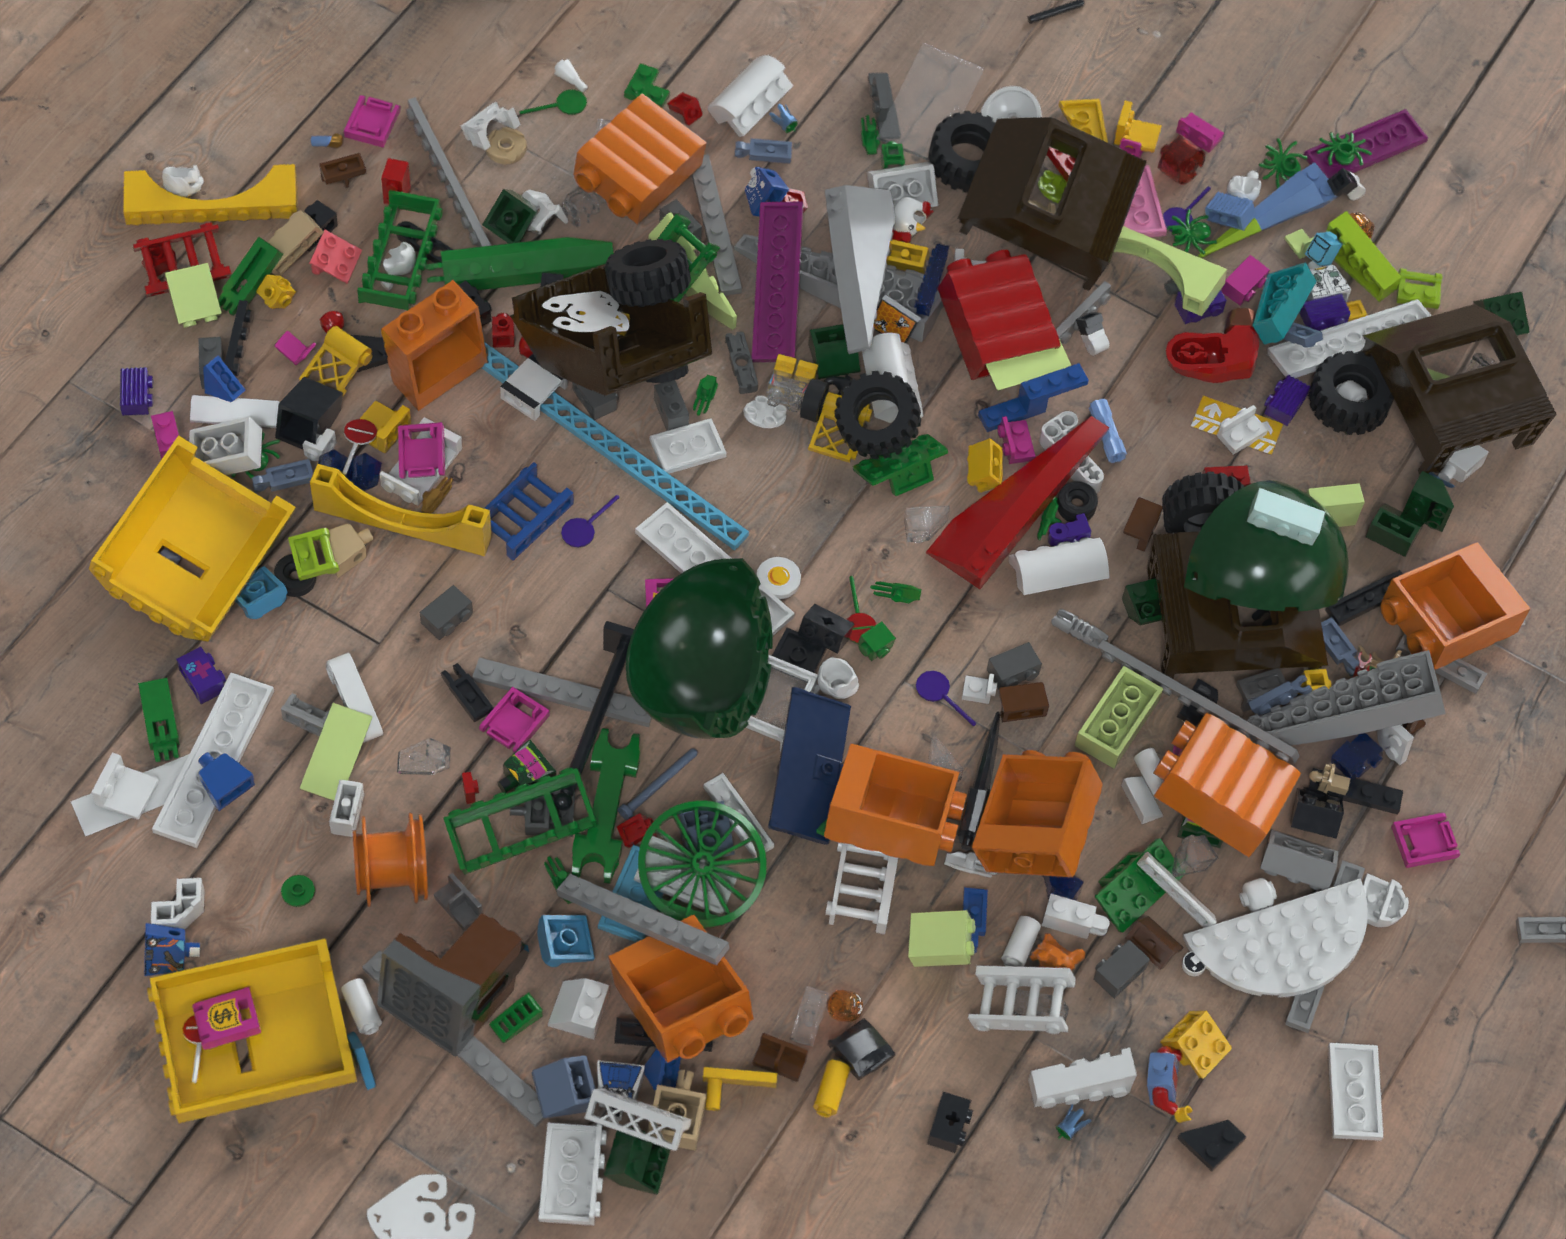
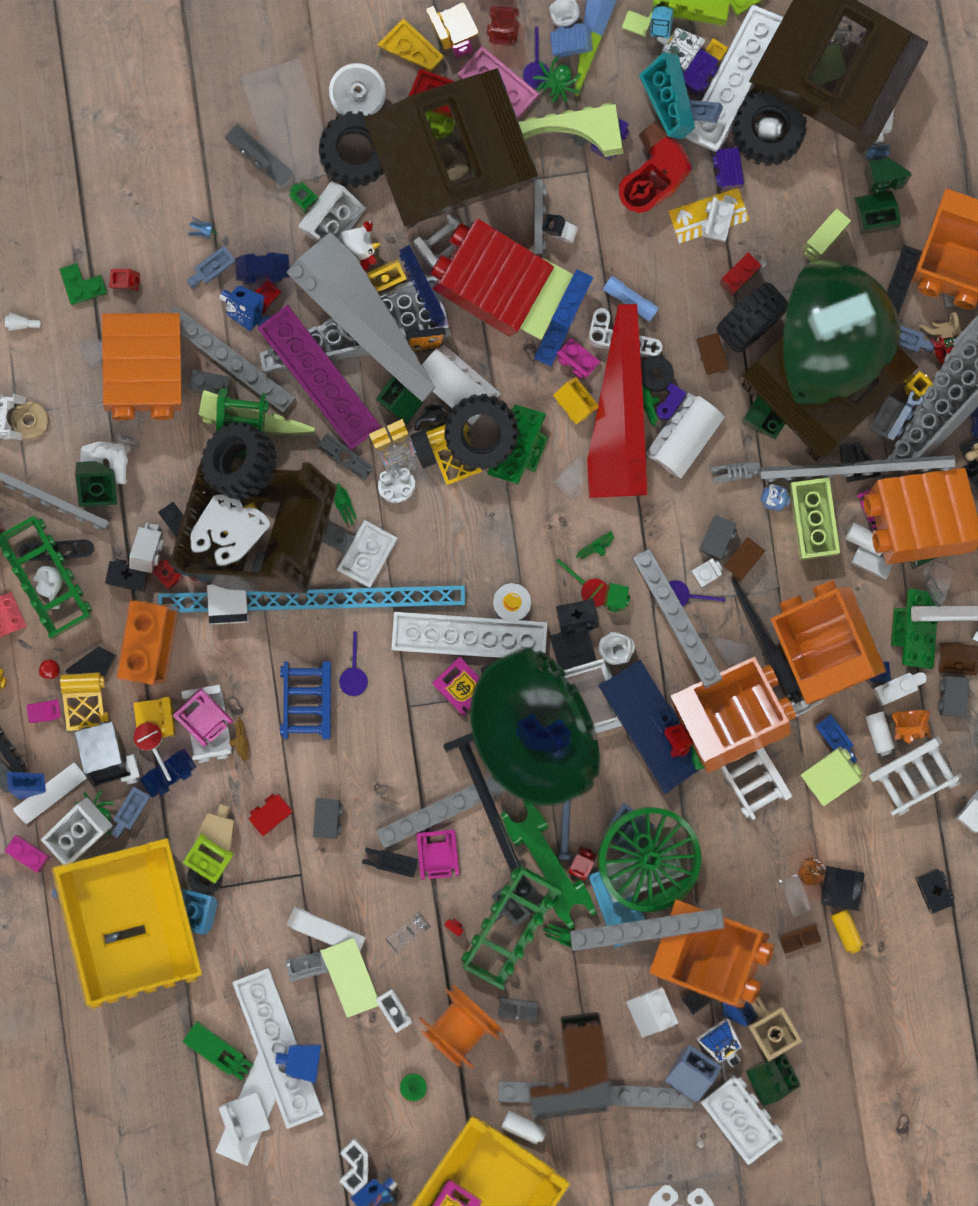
camera: 35 degrees left, 25 degrees up
(201, 674) = (215, 999): dark purple brick -> none
(337, 496) = (229, 780): yellow arch -> none
(361, 1060) = (551, 1159): dark azure tile -> none
(401, 571) = (270, 814): none -> red brick
(498, 293) = (146, 548): none -> white brick
(520, 262) = (130, 512): green hinge -> none
(525, 767) = (478, 884): torso -> none
(529, 1019) = (622, 1035): green slope -> none
(564, 939) = (605, 976): dark azure slope -> none
(568, 102) = (39, 343): green piece -> none
(643, 1110) = (756, 1057): white fence -> none
(702, 683) = (547, 739): none -> clear blue brick
(717, 1076) = (774, 983): yellow piece -> none
(722, 790) = (631, 794): white tile -> none
(751, 94) = (160, 229): white brick -> none
(812, 178) = (253, 268): none -> clear blue brick
(822, 795) = (679, 740): none -> red bracket
(869, 137) = (270, 189): green piece -> none
(915, 695) = (677, 618): none -> light grey plate
(1097, 674) = (775, 497): none -> medium blue head
(1245, 280) = (625, 90): dark pink brick -> none

